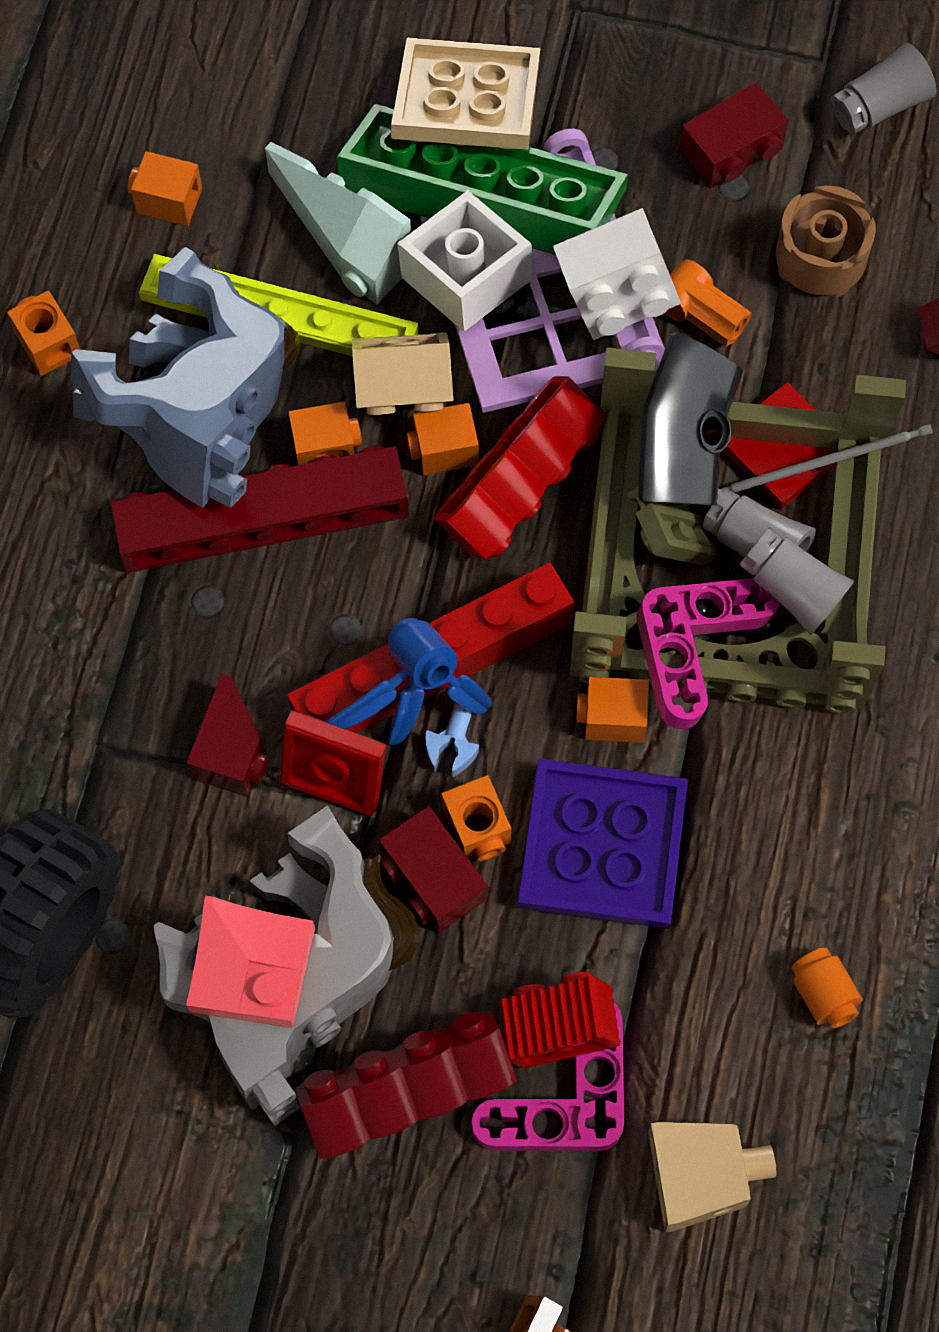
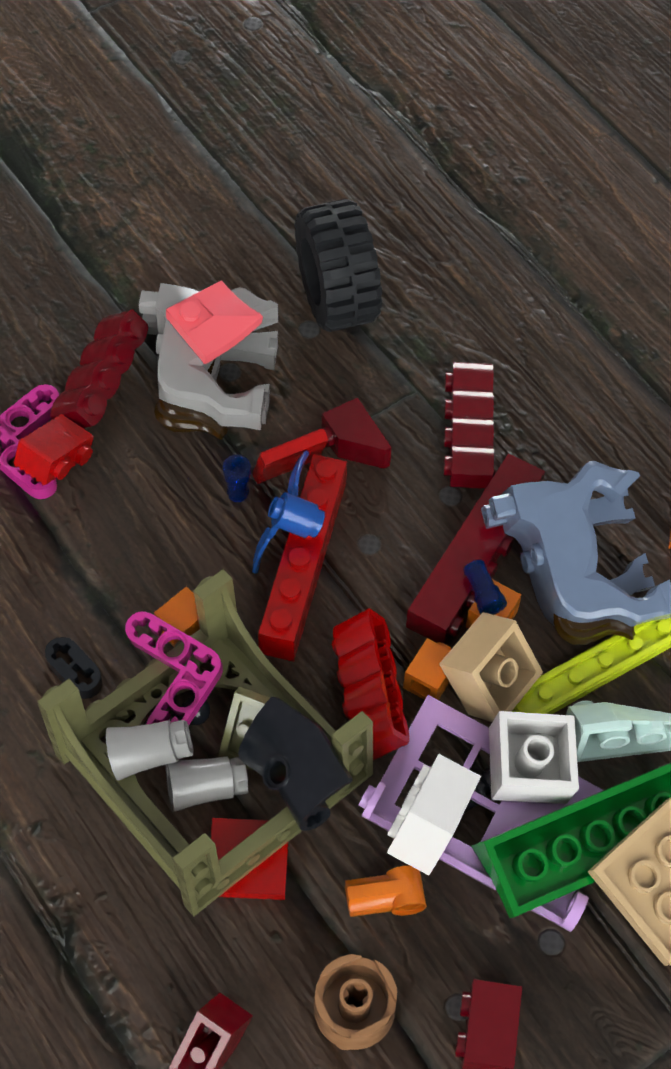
camera: 130 degrees right, 10 degrees down
(102, 637) = (471, 425): none -> dark red brick
(326, 428) = (487, 594): none -> clear blue pin
(405, 796) = (237, 474): none -> clear blue pin
(432, 870) = (190, 468): dark red brick -> none
(454, 735) = (245, 539): light blue bar -> none
(474, 799) = (199, 519): orange brick -> none
(603, 843) = (122, 555): dark purple plate -> none
(778, 772) = (79, 662): none -> black beam
(828, 459) = (216, 839): light grey piece -> none

